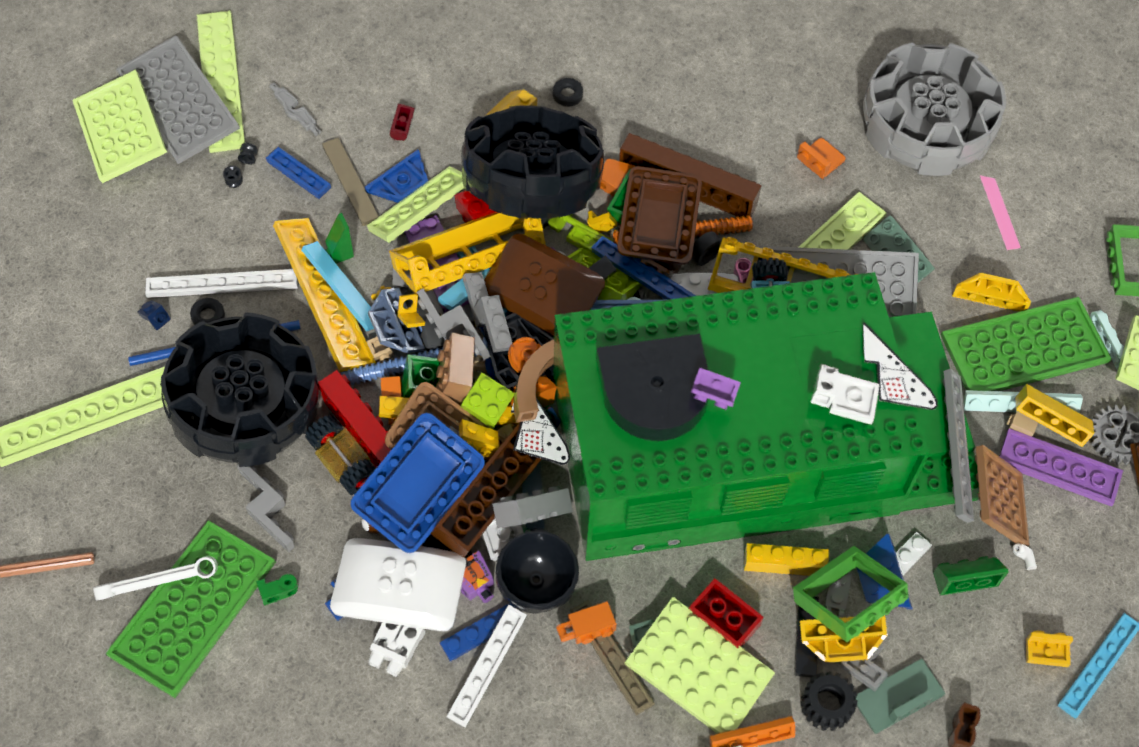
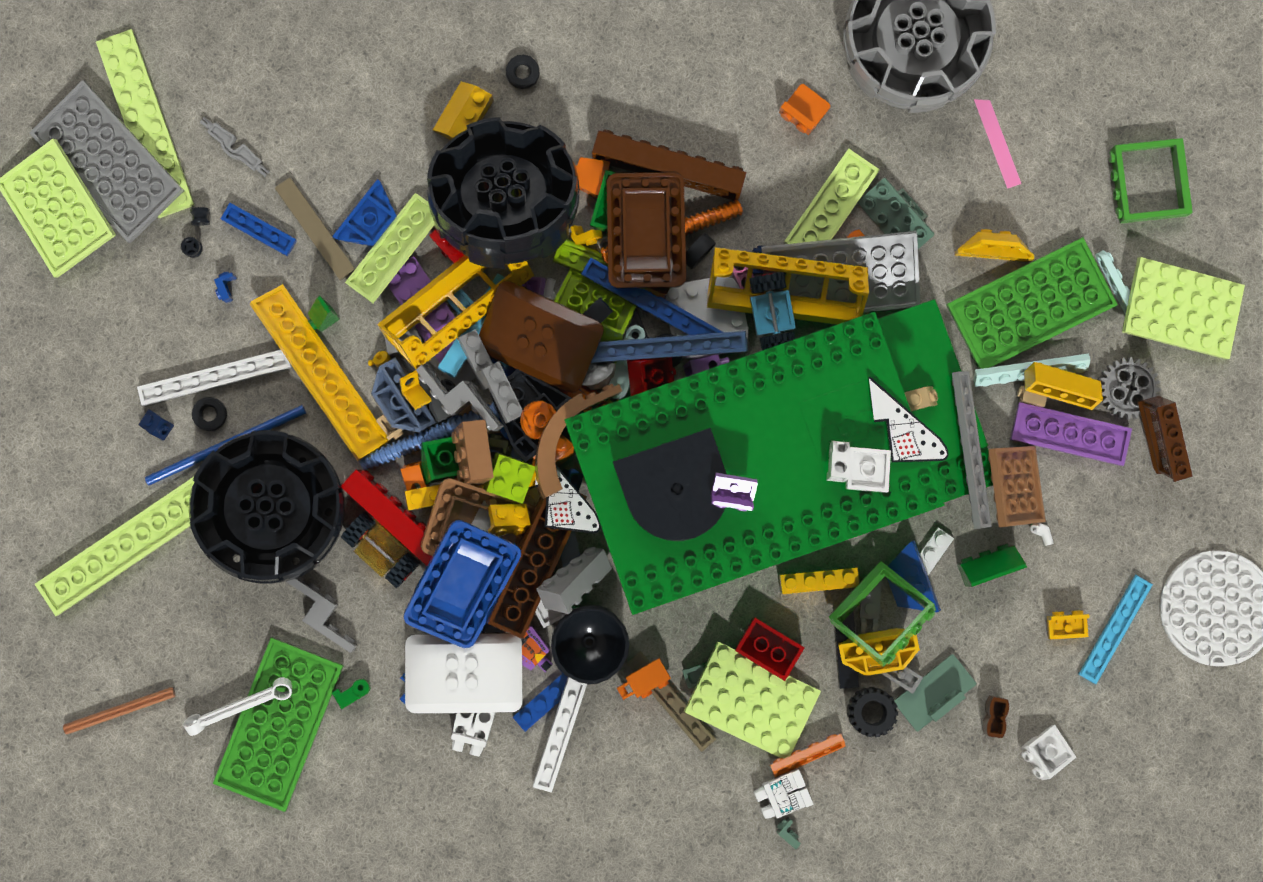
camera: 10 degrees left, 25 degrees up
(254, 206) = (223, 290): none -> blue bracket
(339, 283) = (332, 358): medium azure tile -> none
(401, 122) = (353, 145): dark red brick -> none

